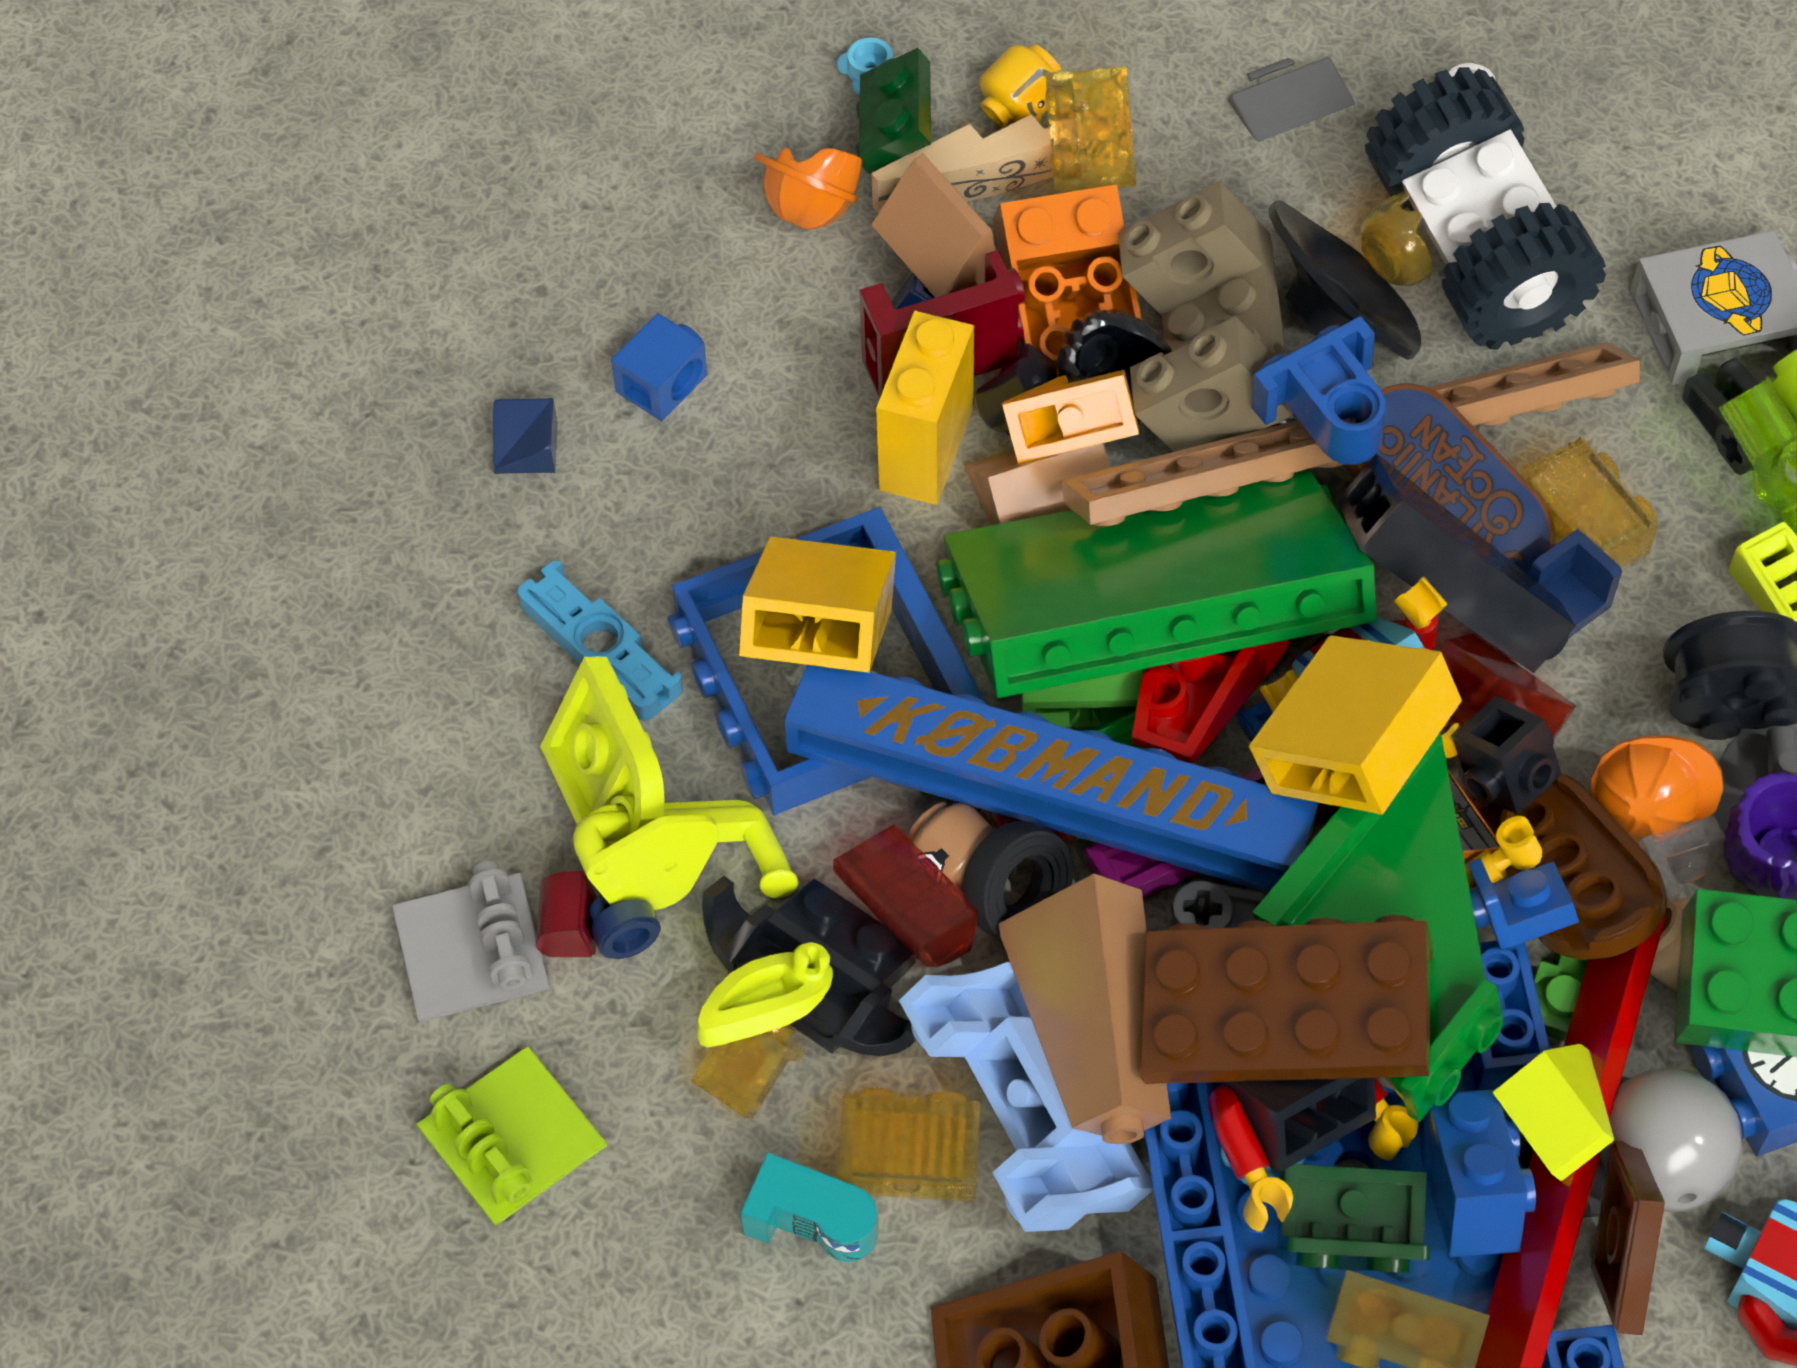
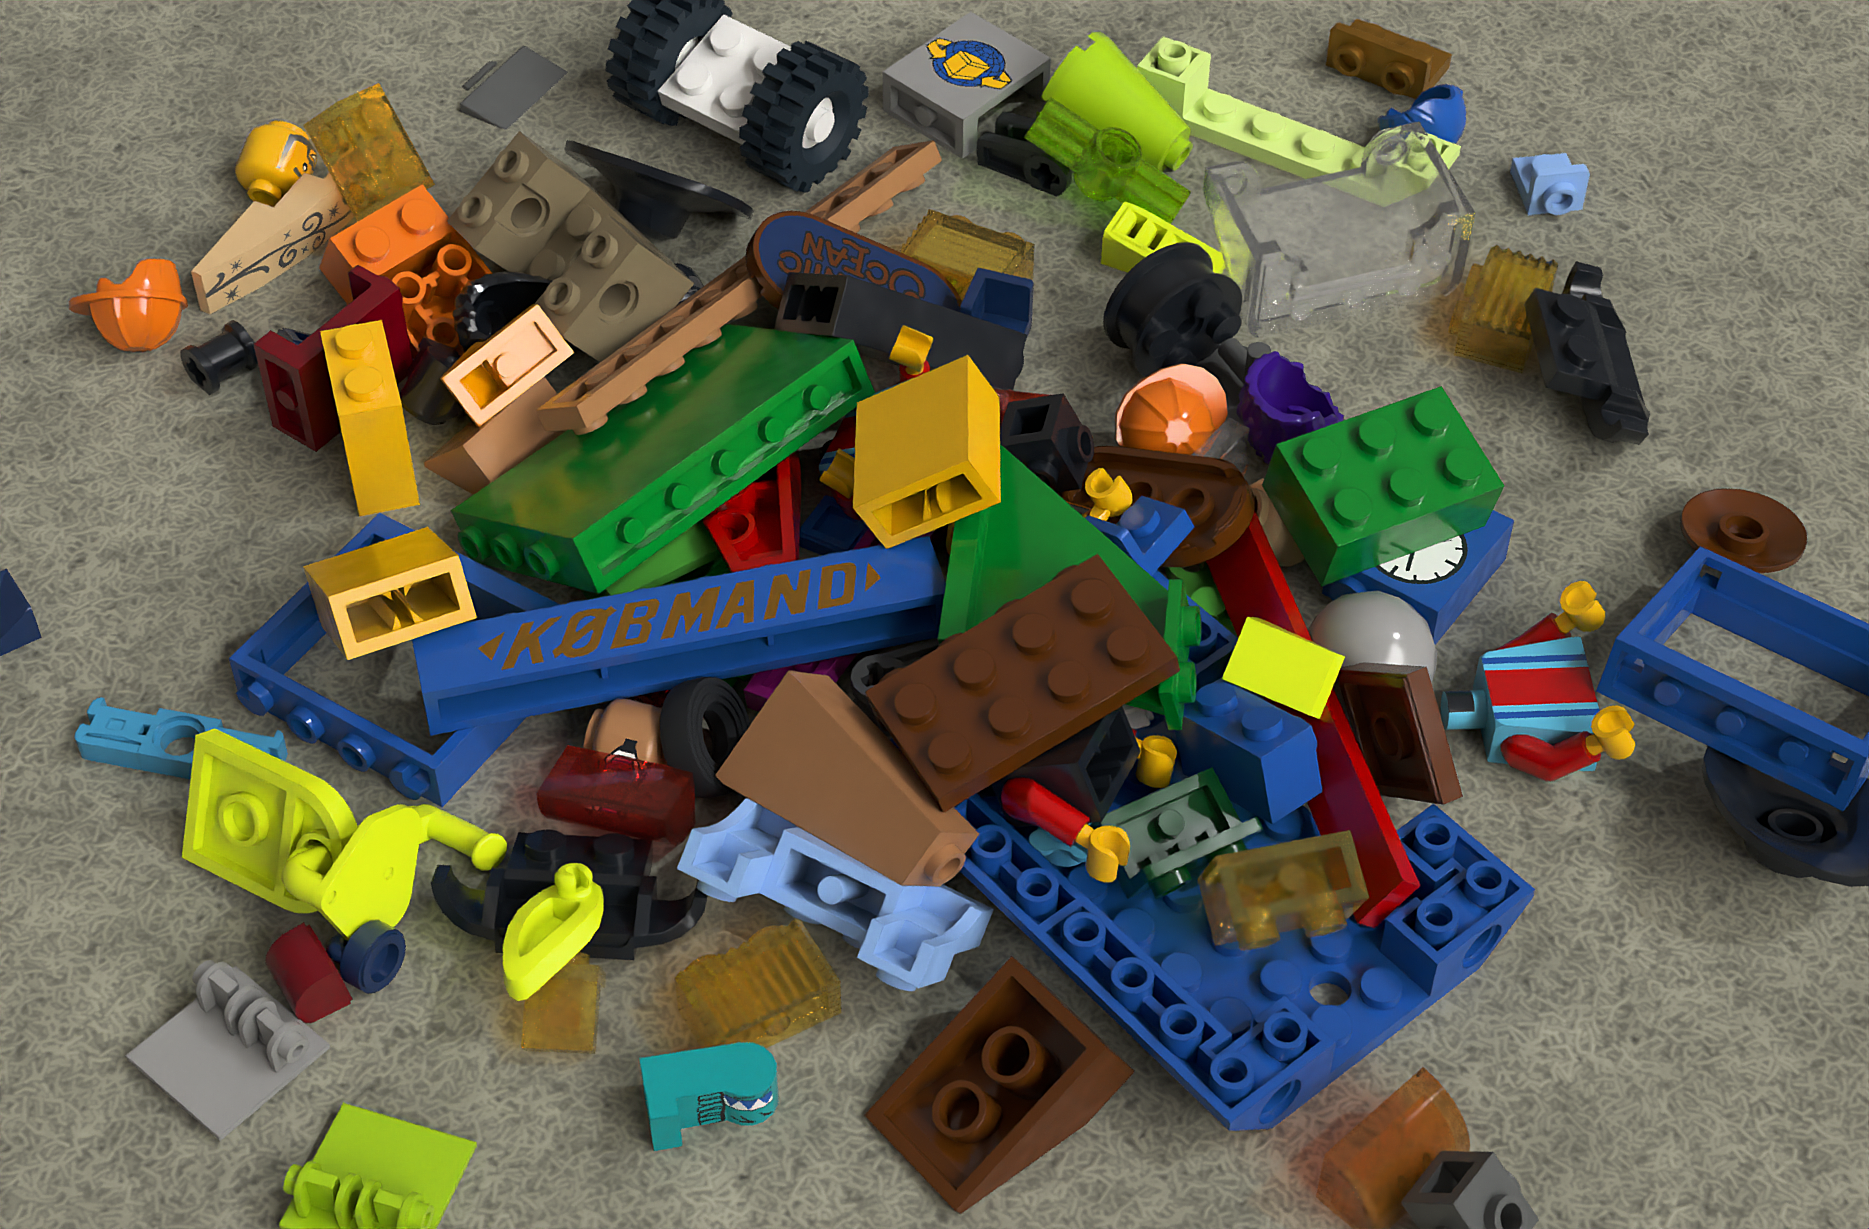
camera: 35 degrees left, 10 degrees down
(660, 366) = (90, 504): blue brick -> none
(853, 269) = (220, 357): none -> black bush
(863, 54) = (125, 204): medium azure plate -> none
(894, 110) = (178, 218): dark green bracket -> none
(935, 230) = (282, 281): medium nougat slope -> none
(1325, 386) = (723, 238): blue pin -> none
(1392, 242) = (680, 141): clear yellow hair -> none

